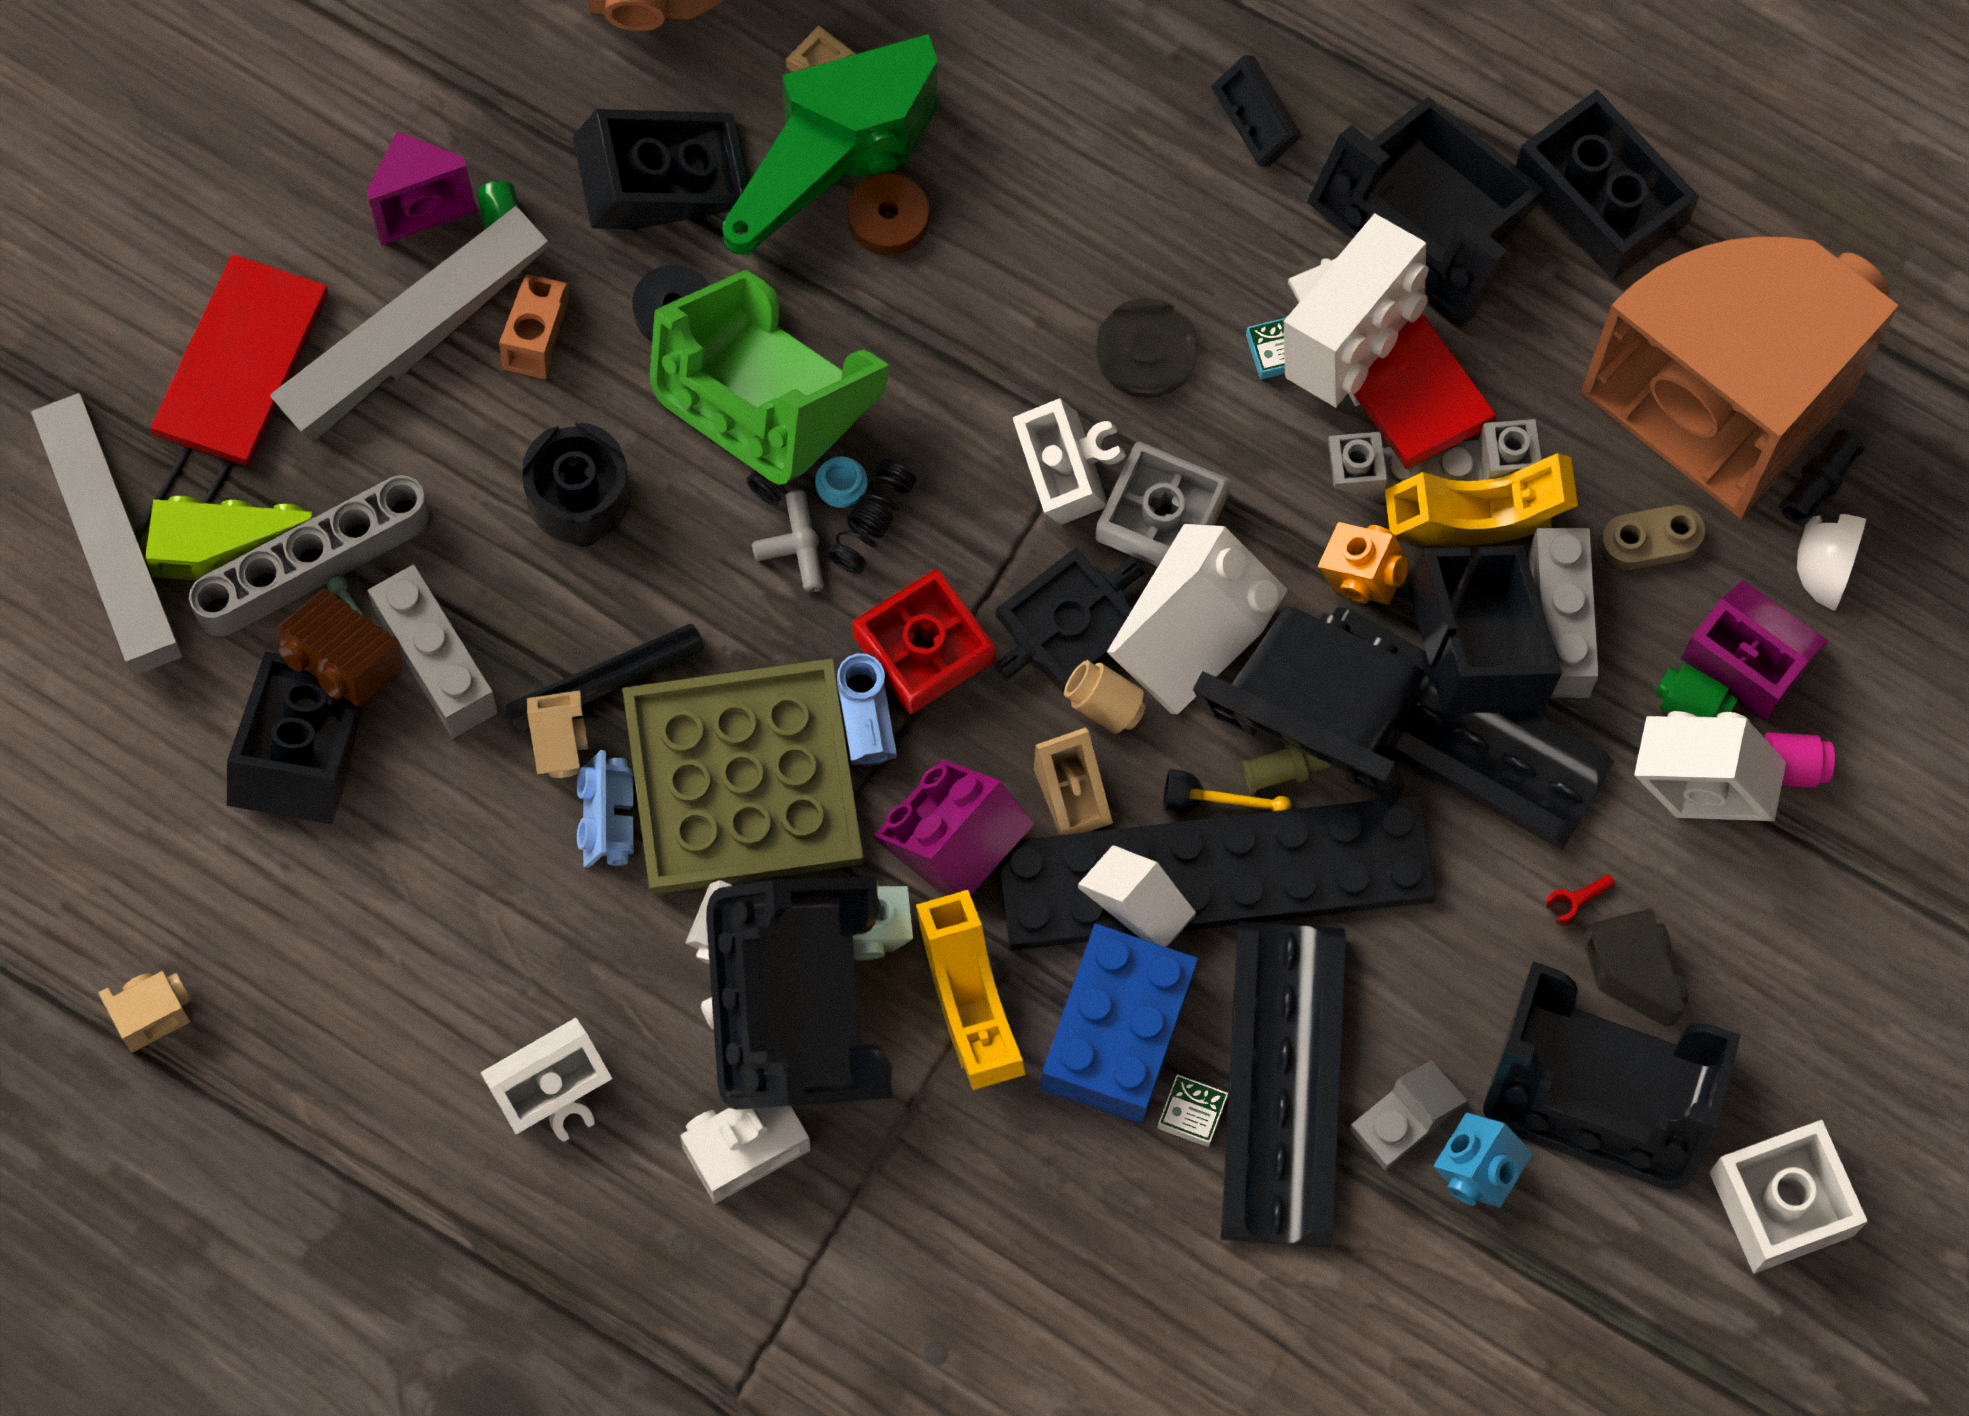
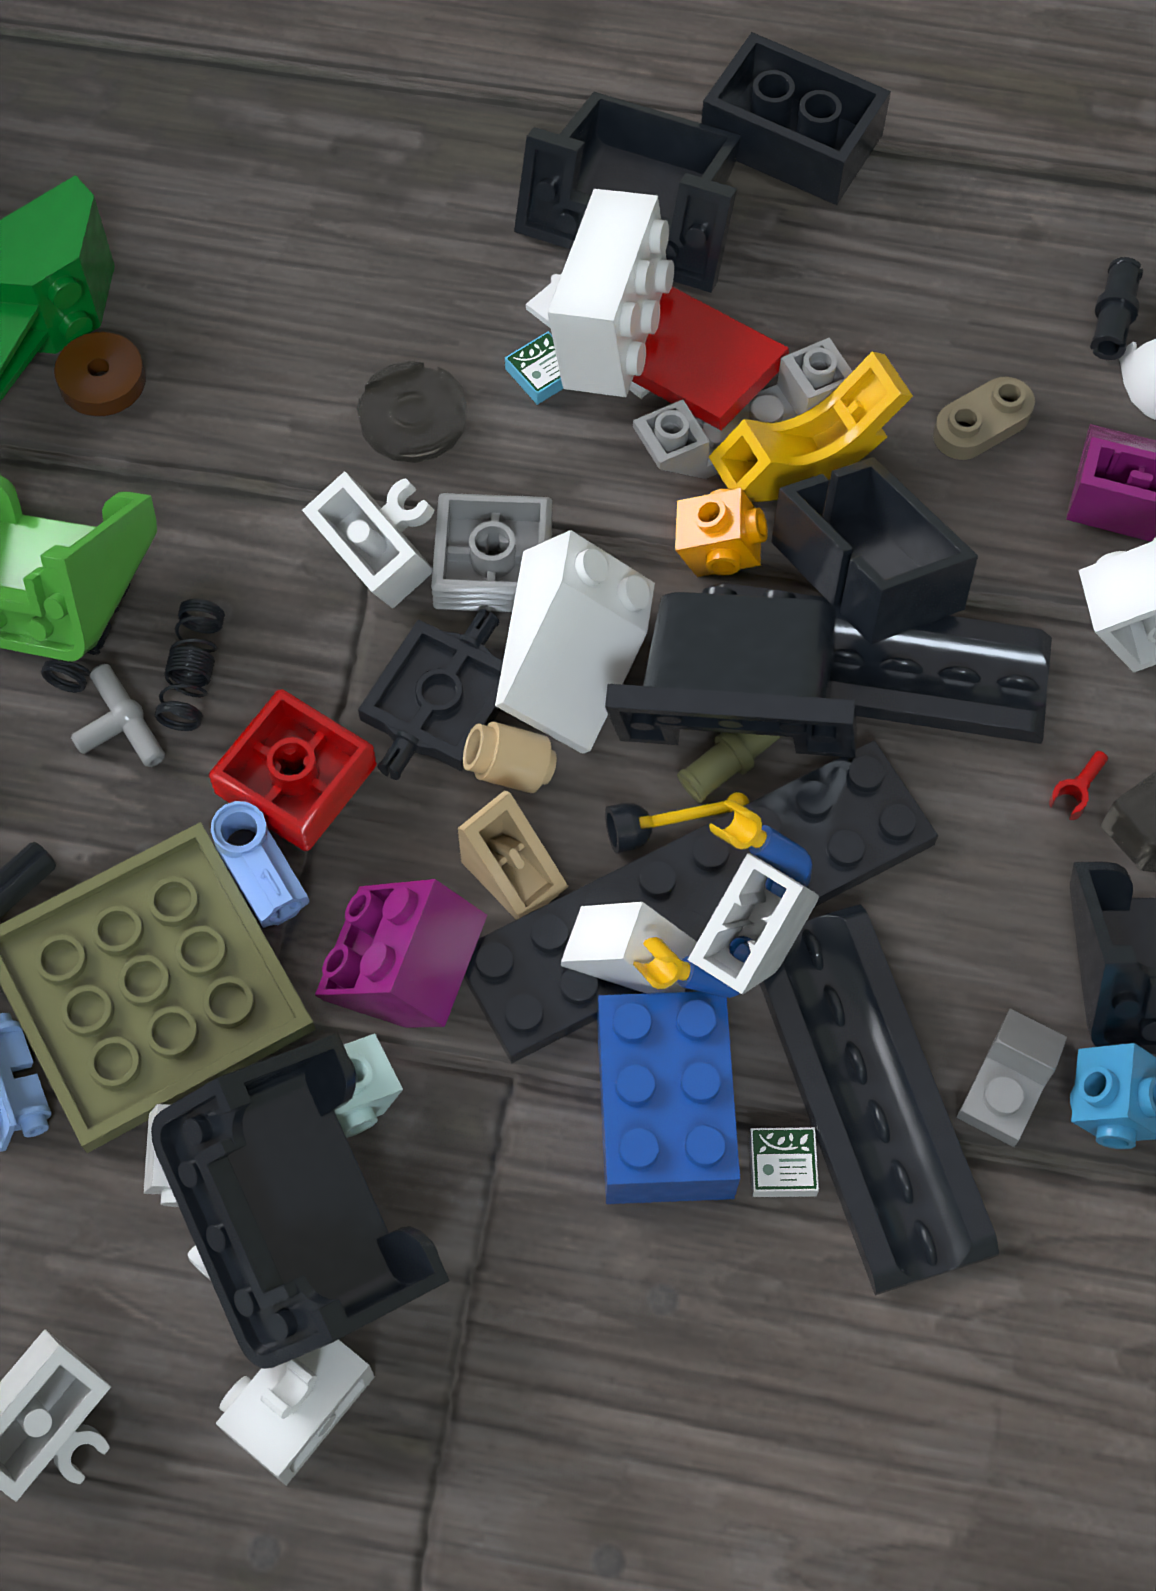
camera: 20 degrees left, 5 degrees down
(841, 482) = (144, 642): medium azure plate -> none
(968, 990) = (486, 1125): yellow arch -> none
(1238, 911) = (753, 920): none -> torso
(1256, 110) = (432, 164): black plate -> none
(1564, 584) = (929, 472): light grey brick -> none
(1693, 693) = (1091, 539): green brick -> none
(1739, 357) = (1001, 205): nougat brick -> none

